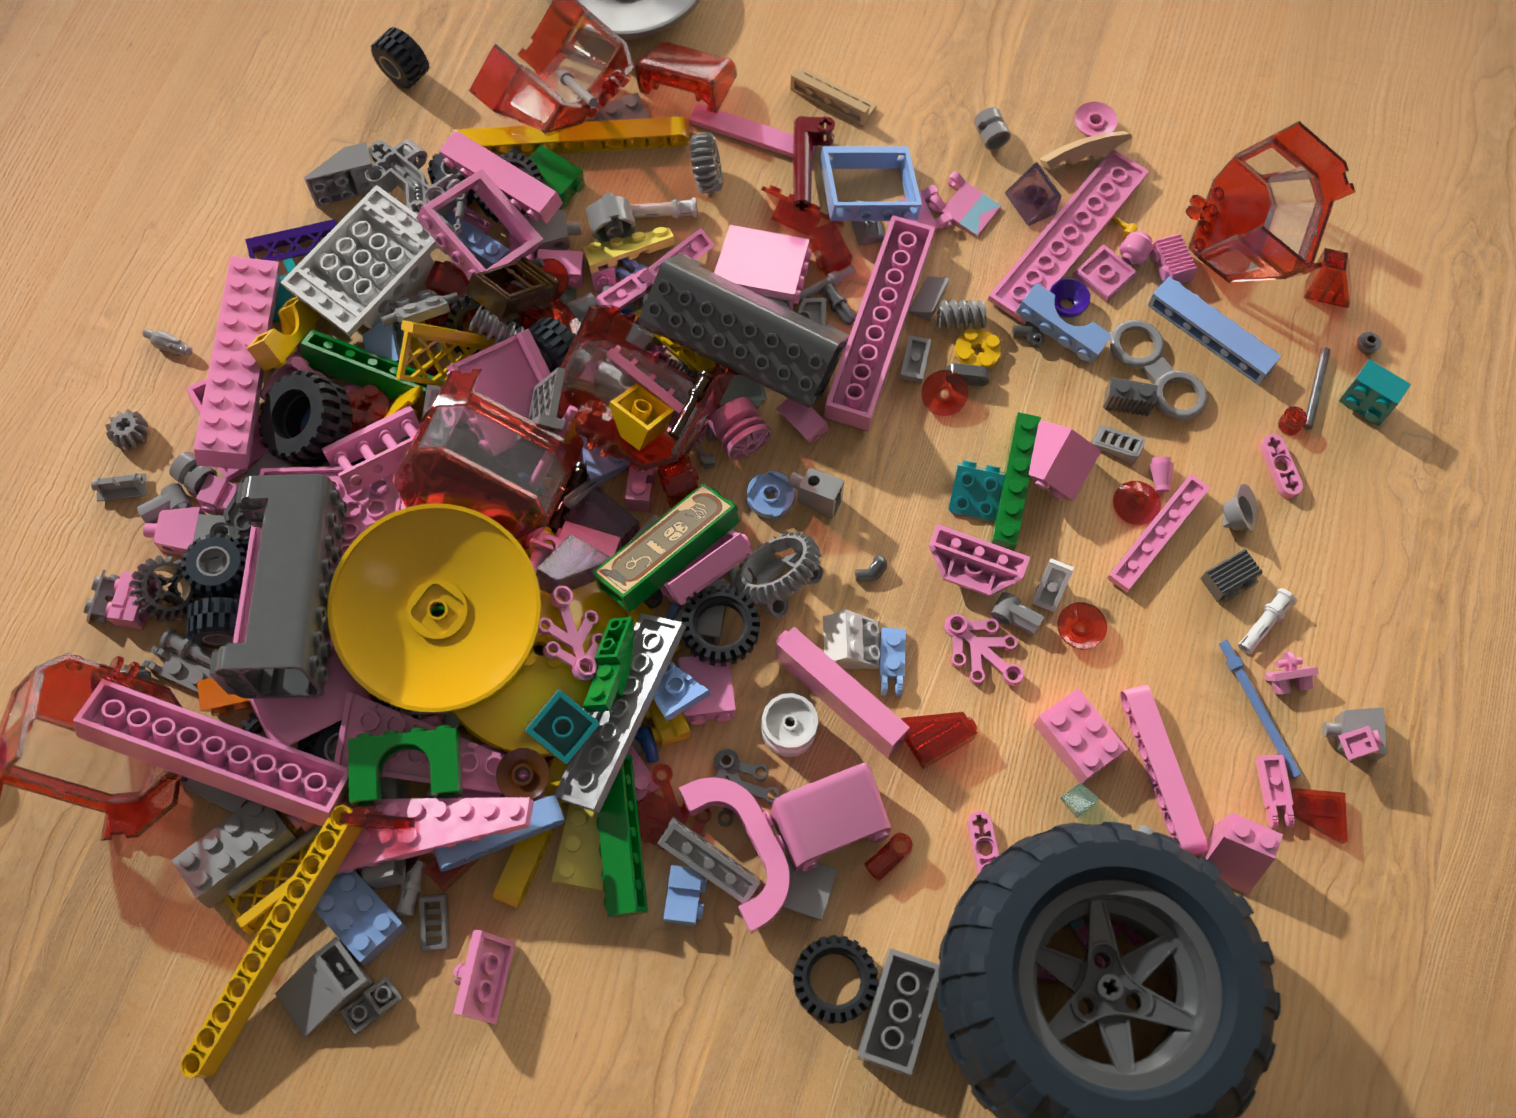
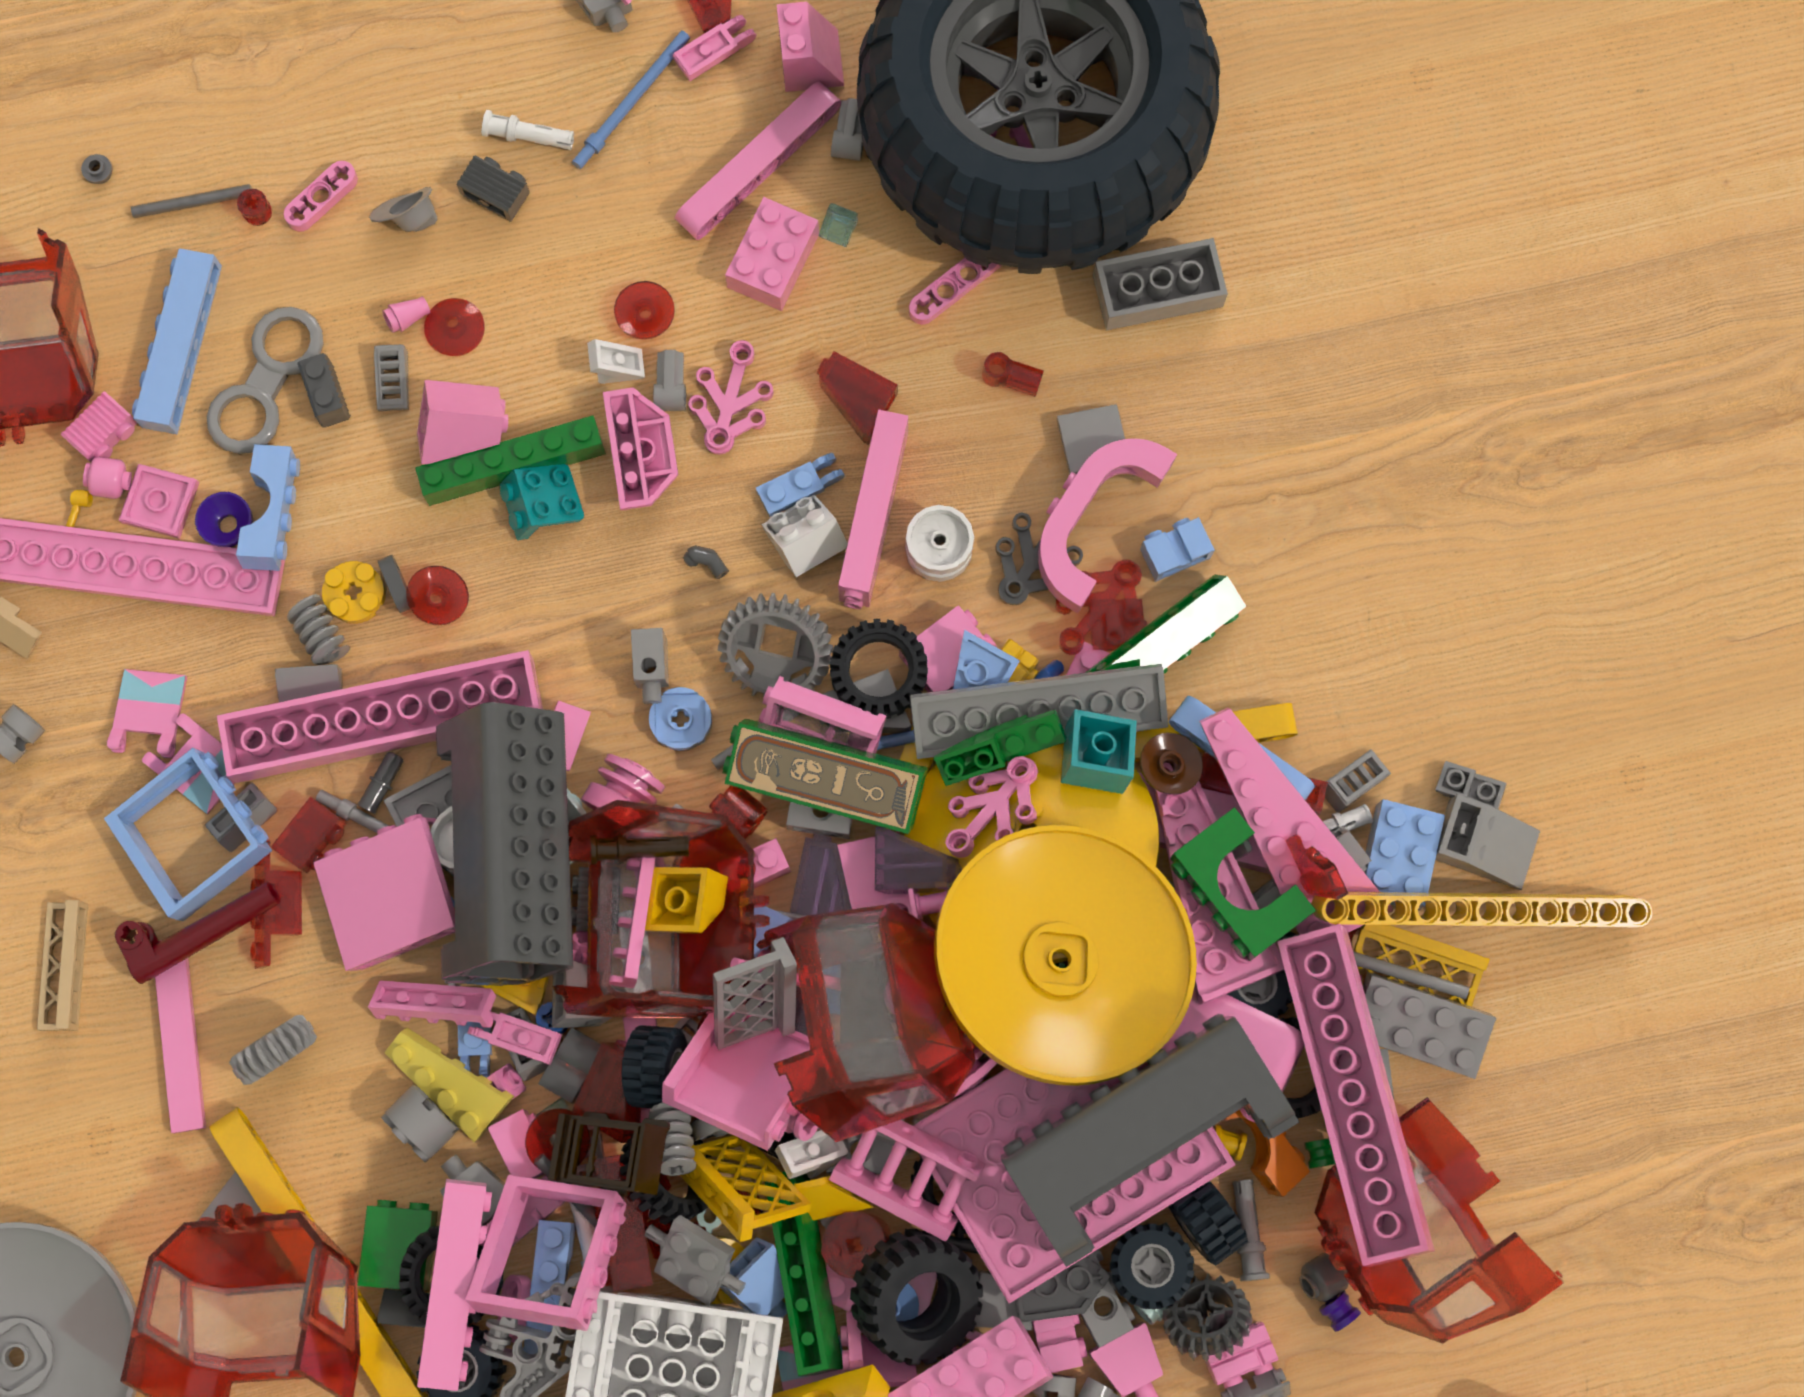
camera: 120 degrees left, 10 degrees up
(178, 670) = (1278, 1236): light grey hinge -> none
(483, 977) = (1379, 690): bright pink plate -> none
(567, 80) = (238, 1315): light grey bar -> none
(578, 855) = (1204, 674): light yellow wing -> none
(674, 208) = (354, 1061): white pin -> none
(686, 70) = (135, 1168): clear red windscreen -> none
(709, 861) = (1130, 538): light grey fence -> none
(830, 815) = (1014, 444): bright pink windscreen -> none
(864, 964) = (1171, 329): black tyre -> none
(915, 359) = (407, 654): light grey plate -> none
(1030, 333) = (297, 542): dark grey arm -> none
(1034, 195) = (92, 633): slope -> none
(1158, 533) = (482, 284): bright pink plate -> none
(1302, 675) = (574, 85): bright pink hips -> none
(1331, 282) = (24, 236): clear red slope -> none
(1374, 392) = (174, 131): teal brick -> none

